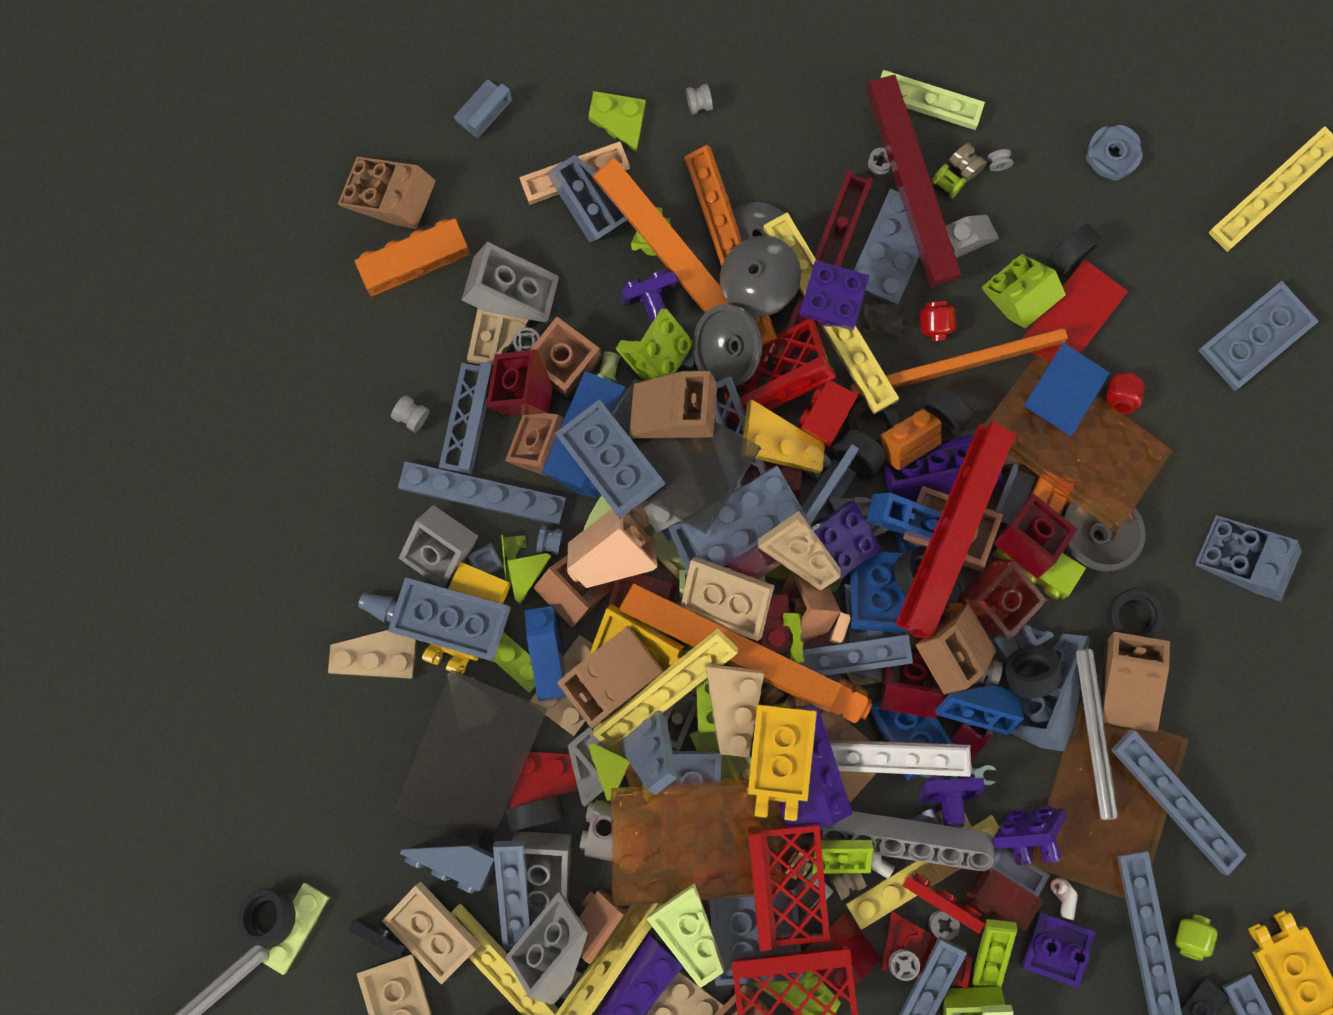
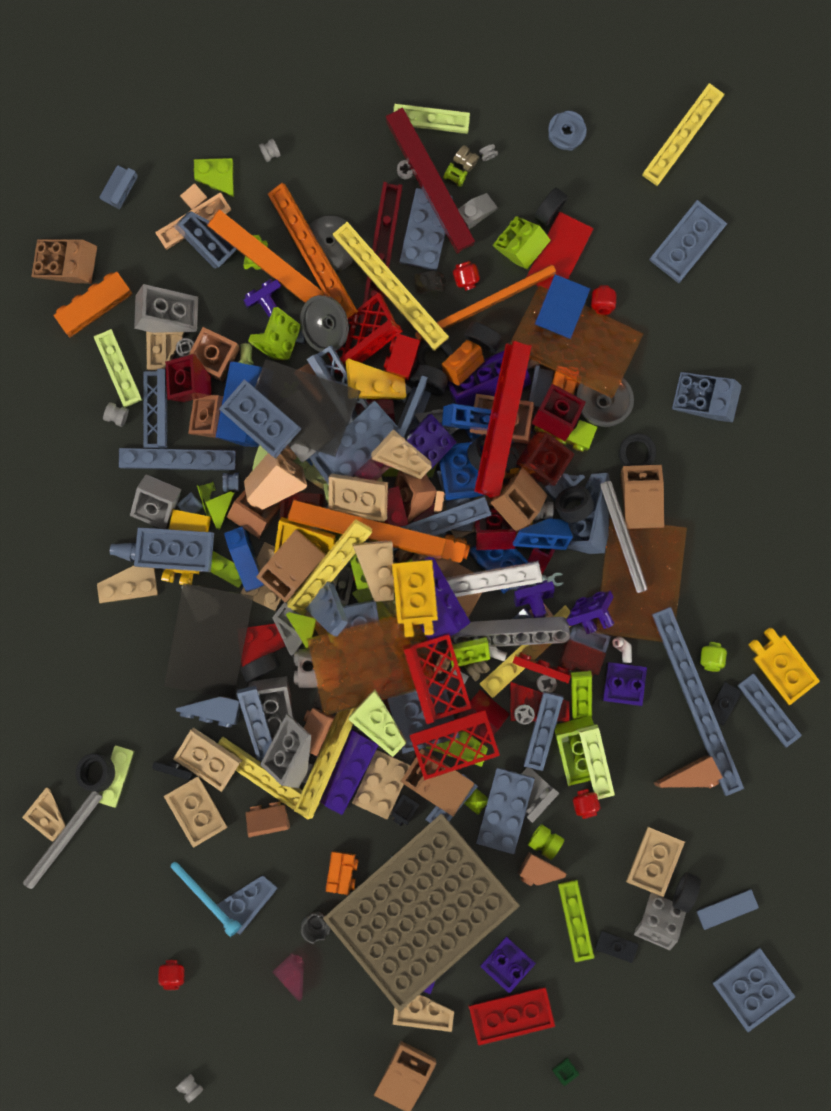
camera: 20 degrees left, 5 degrees up
(182, 966) = (46, 816): none -> tan wing
(427, 351) = (118, 368): none -> yellowish green plate
(582, 140) = (193, 196): none -> light nougat tile
(674, 406) = (296, 374): medium nougat slope -> none
(771, 286) = (348, 270): dark grey dish -> none
(793, 621) = (406, 503): lime piece -> none
(834, 295) = (389, 275): dark purple plate -> none
(1178, 802) = (686, 570): sand blue plate -> none

